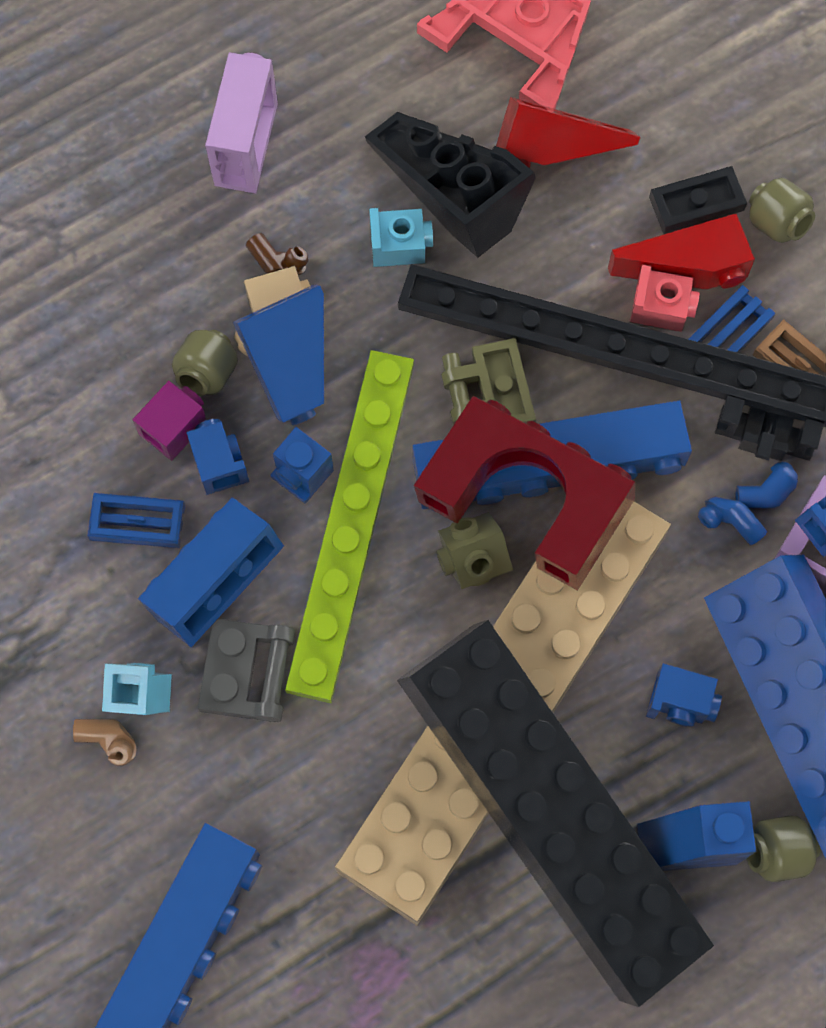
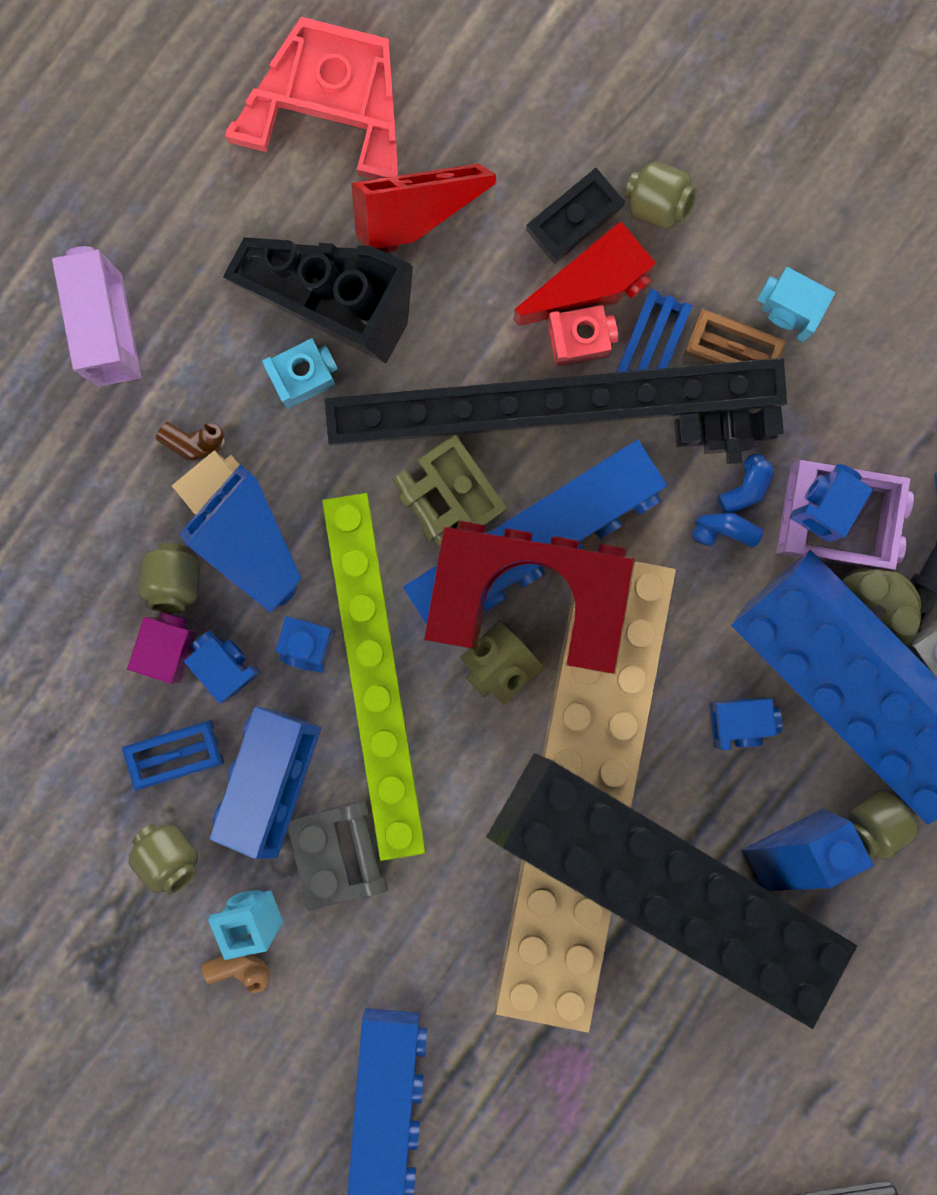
camera: 20 degrees left, 15 degrees up
(86, 604) = (163, 858): none -> olive head

